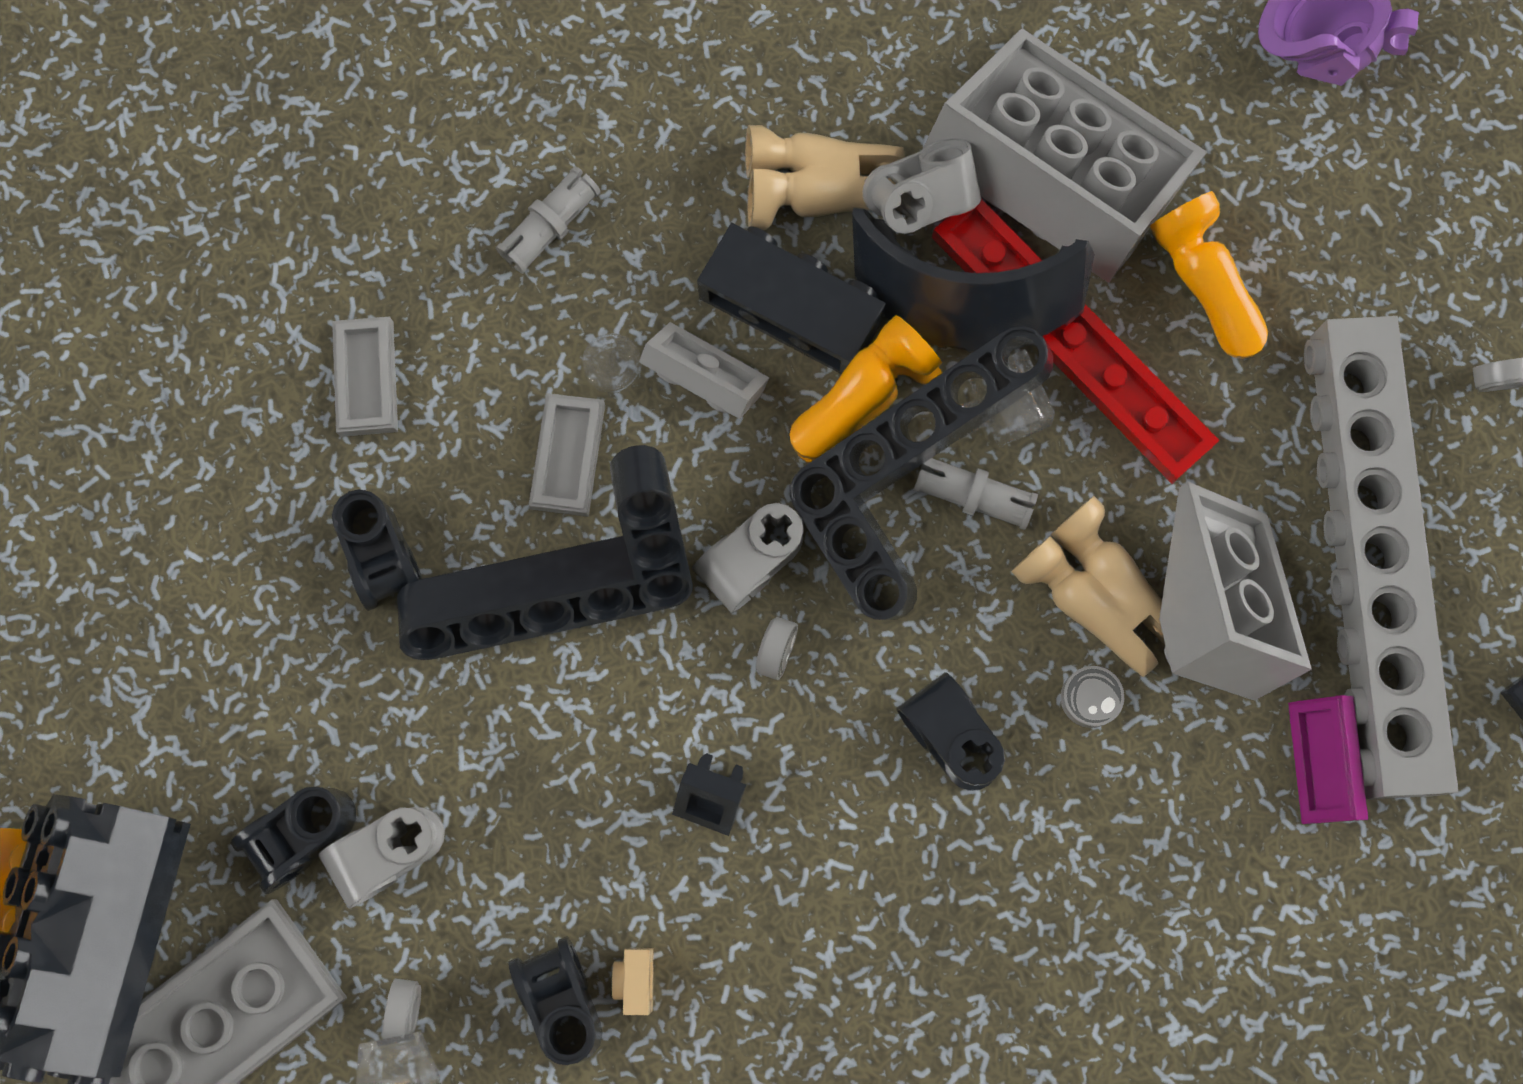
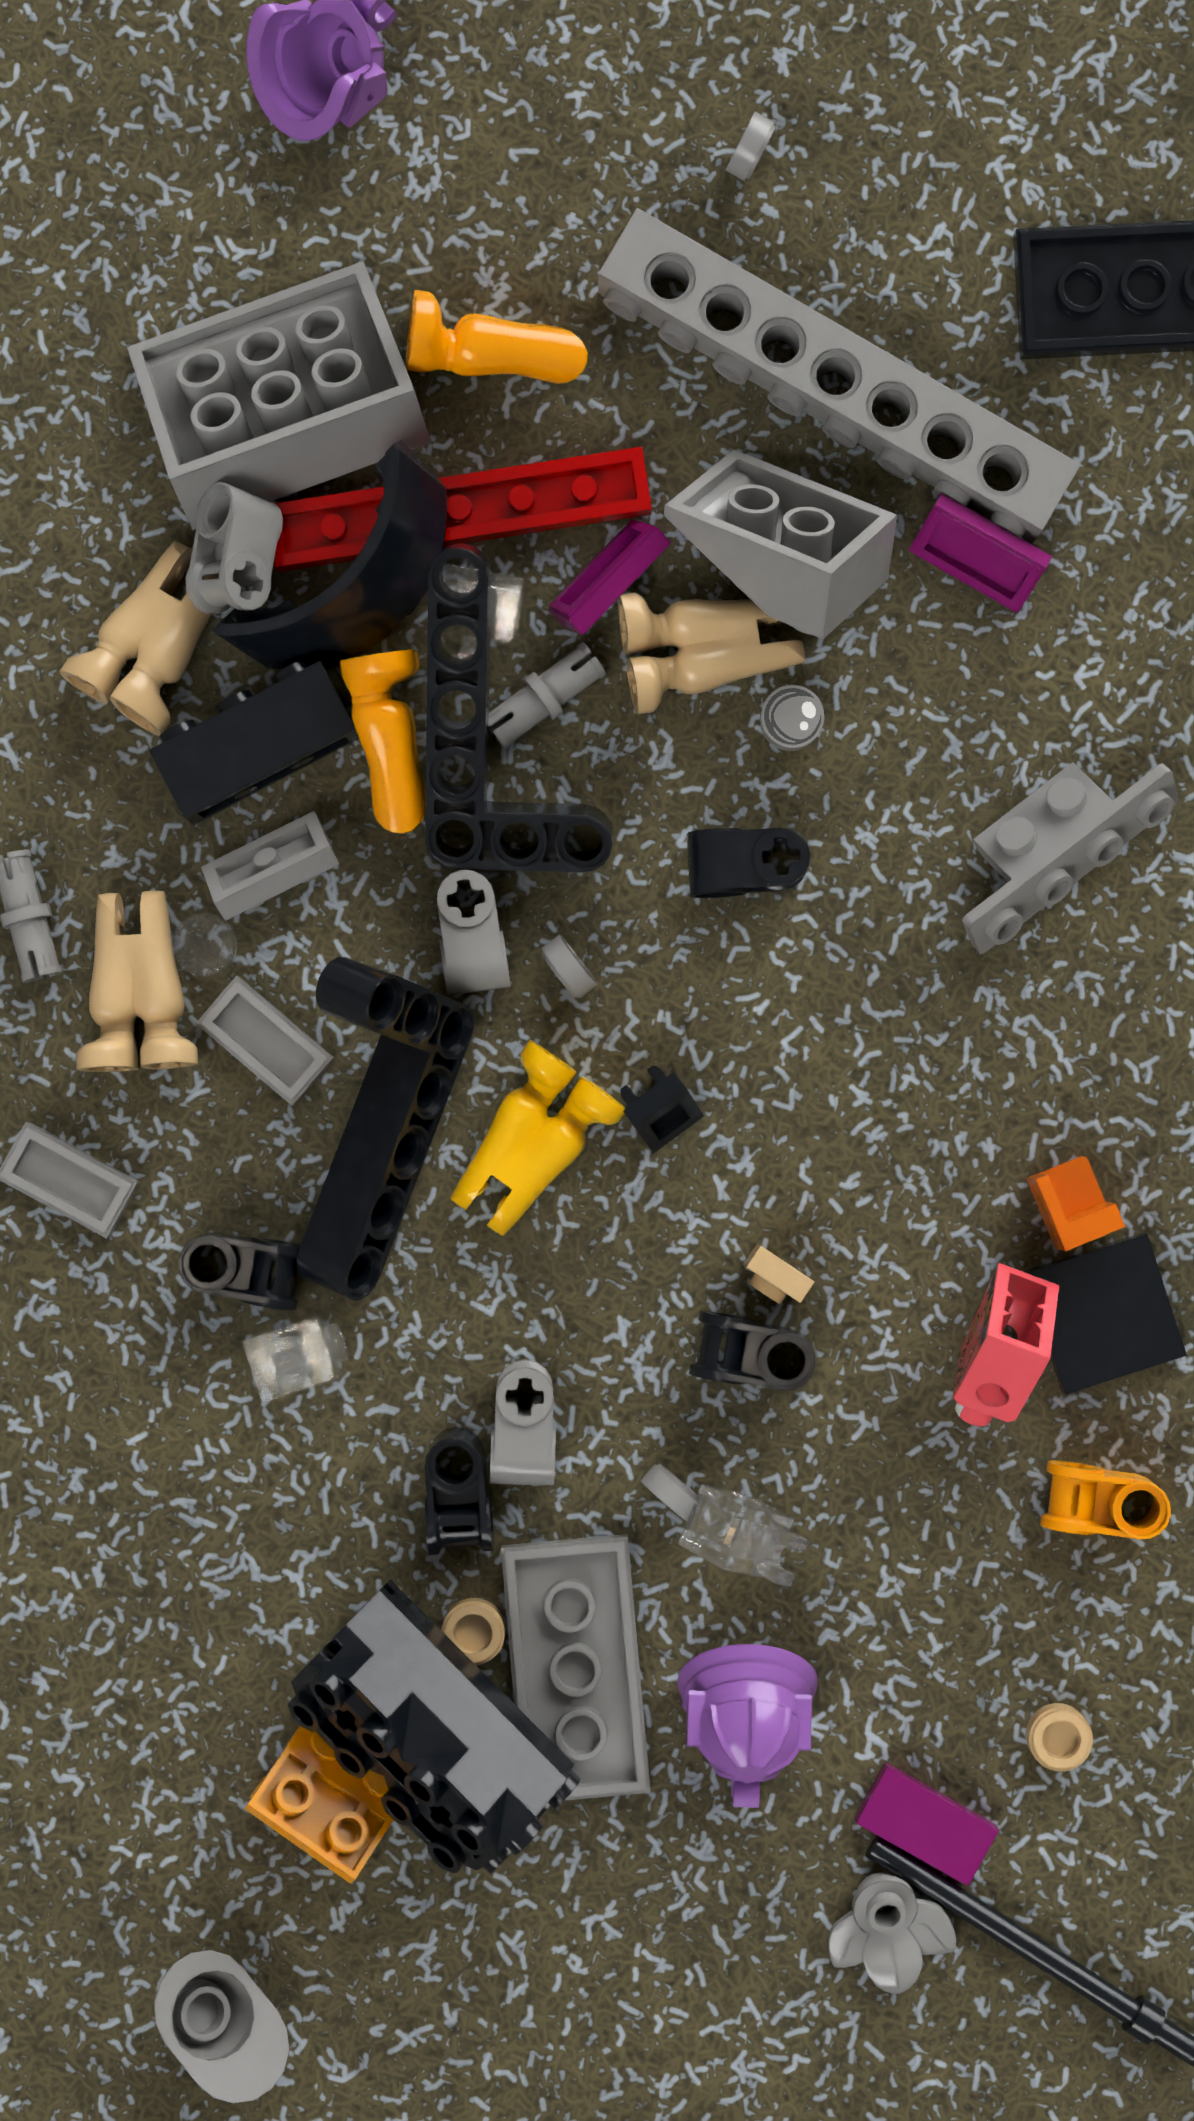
camera: 60 degrees left, 10 degrees up
(192, 922) = (475, 1629): none -> tan tile
(328, 633) = (295, 1356): none -> clear brick
(550, 327) = (134, 979): none -> tan piece
(612, 708) = (528, 1146): none -> yellow piece
(1102, 480) = (608, 576): none -> magenta tile
(1144, 980) = (1058, 840): none -> light grey bracket

